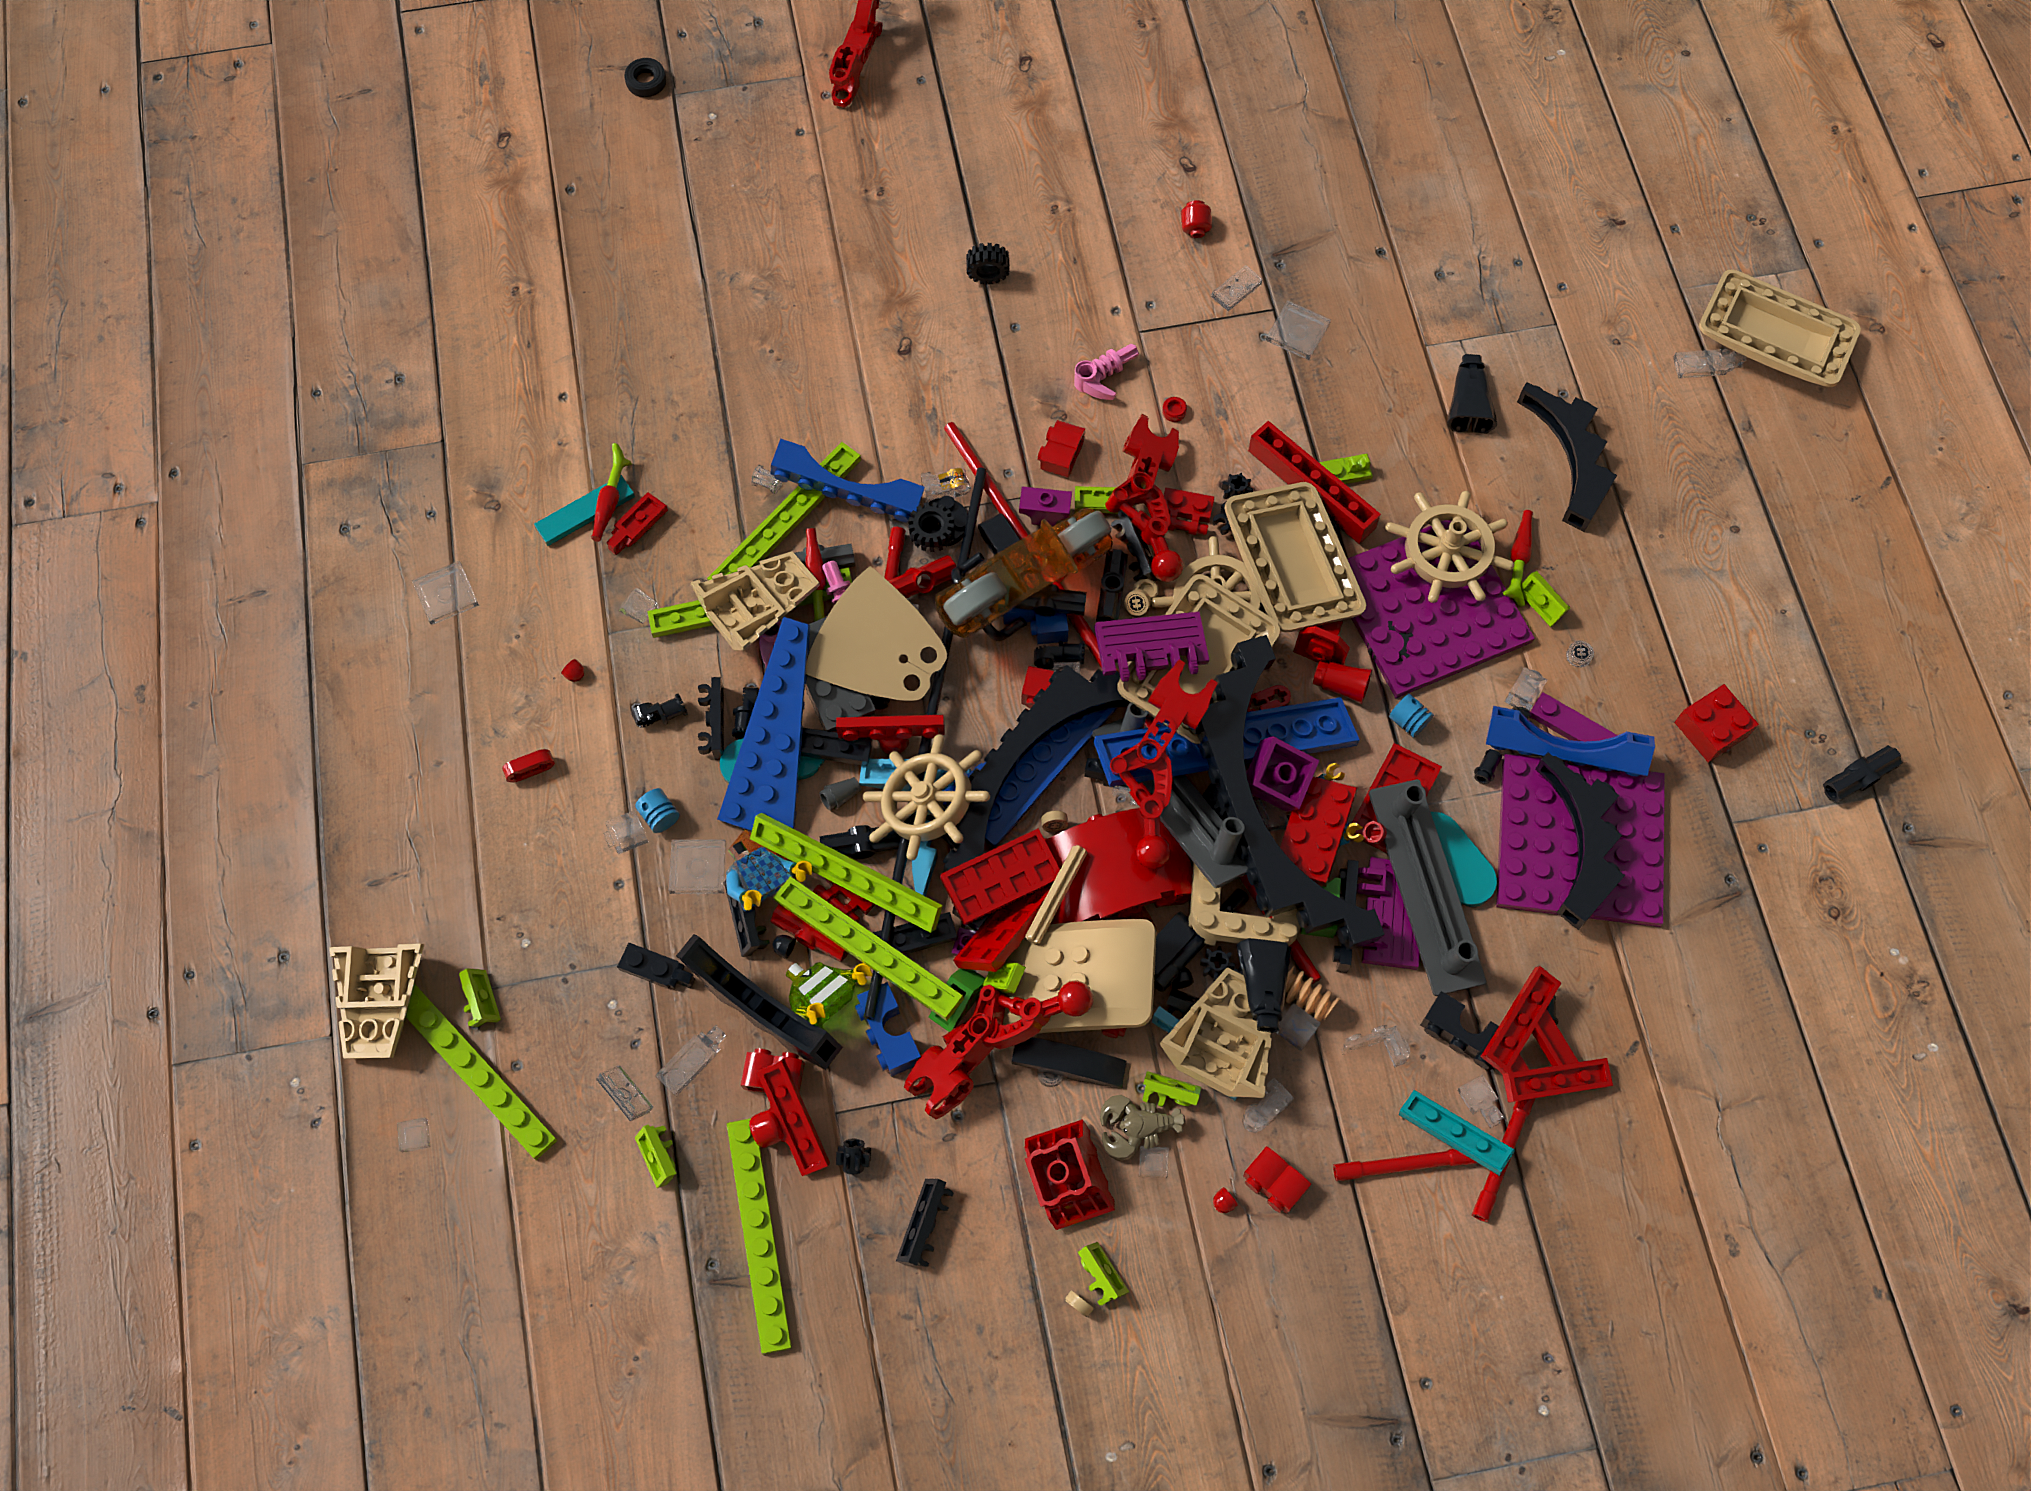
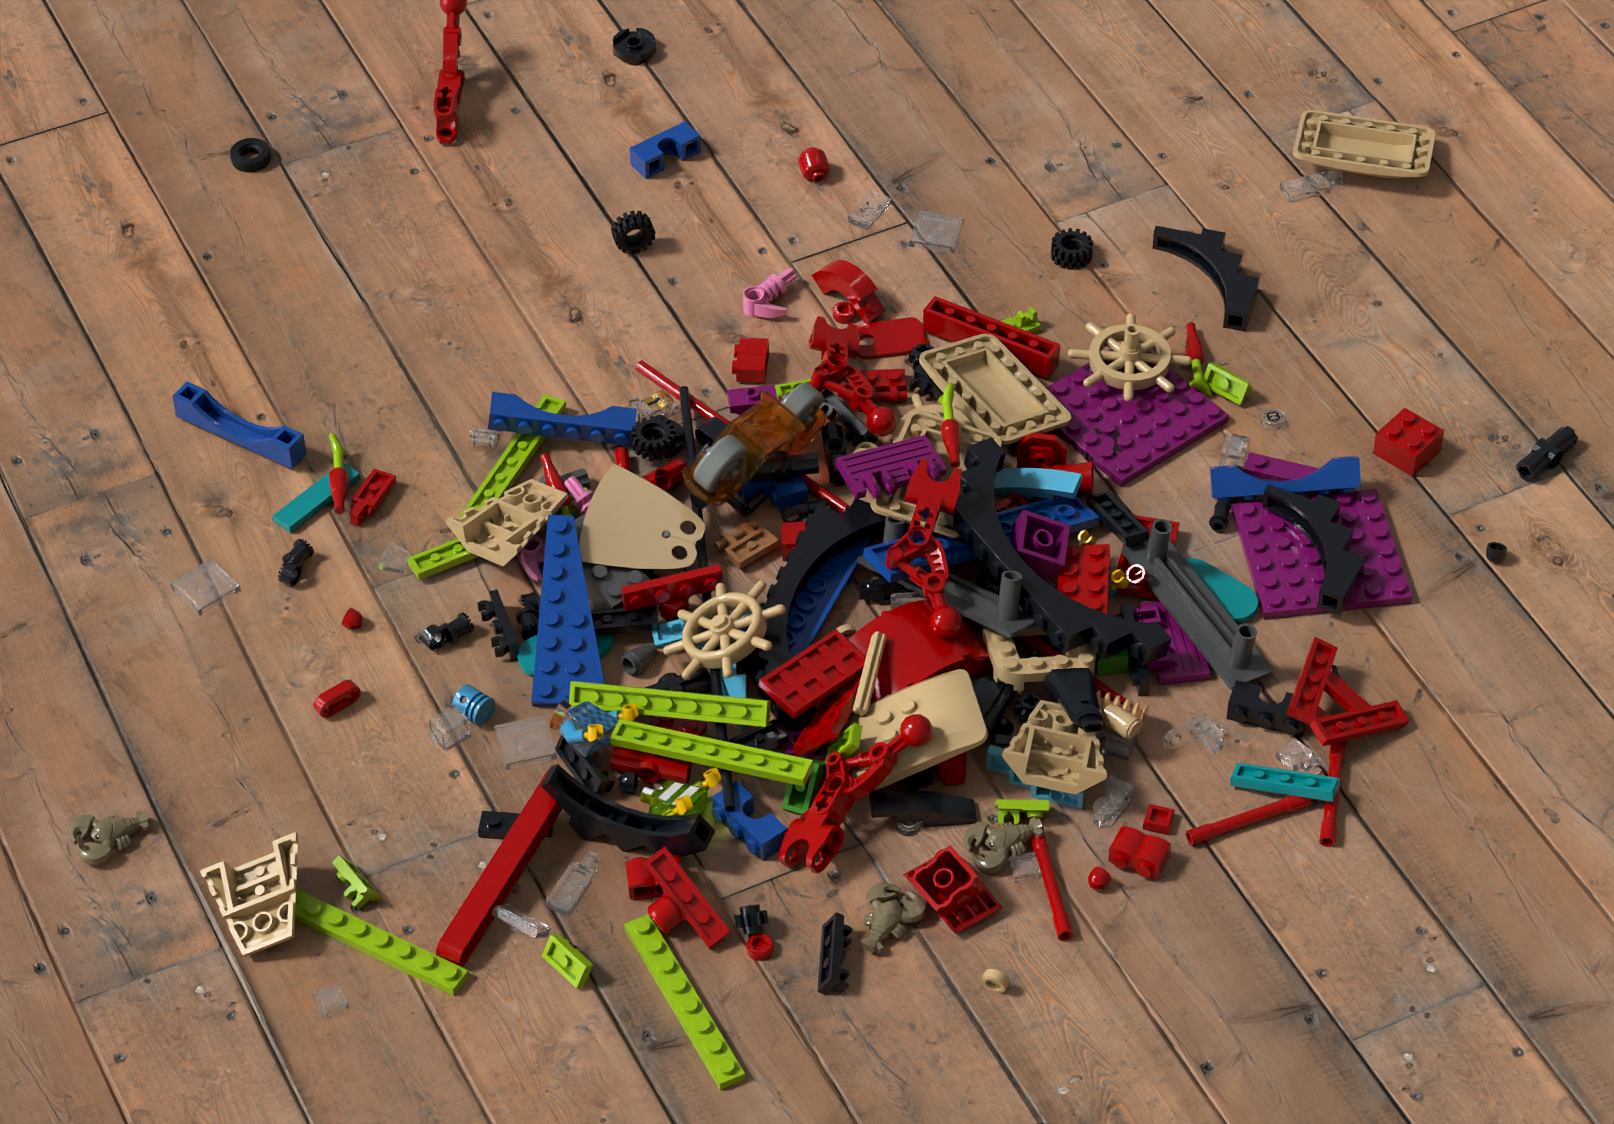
camera: 15 degrees left, 20 degrees down
(258, 872) = (109, 833): none -> dark tan animal
(512, 390) = (276, 443): none -> blue arch
(533, 594) = (294, 562): none -> black connector
(618, 1034) = (499, 877): none -> red beam
(855, 1188) = (760, 947): none -> red tile
(993, 682) = (749, 548): none -> medium nougat plate
(995, 1187) = (889, 914): none -> dark tan animal
(1056, 38) = (634, 45): none -> black plate
(1067, 157) = (678, 141): none -> blue arch
(1097, 1263) = (1013, 958): lime plate -> none
(1171, 1237) = (1060, 917): none -> red piece
(1189, 382) = (854, 284): none -> red arch
(1216, 452) = (890, 337): none -> red piece
(1229, 608) = (950, 428): none -> red piece
(1303, 1019) = (1122, 721): none -> tan piece
(1308, 683) = (1037, 483): none -> medium azure slope
(1310, 1138) = (1158, 819): none -> red tile
(1377, 749) = (1117, 518): none -> black plate
(1411, 715) = (1139, 491): dark azure piece -> none
(1433, 374) = (1068, 257): none -> black tyre
(1472, 398) = (1112, 251): black piece -> none
(1775, 884) = (1496, 551): none -> black hinge

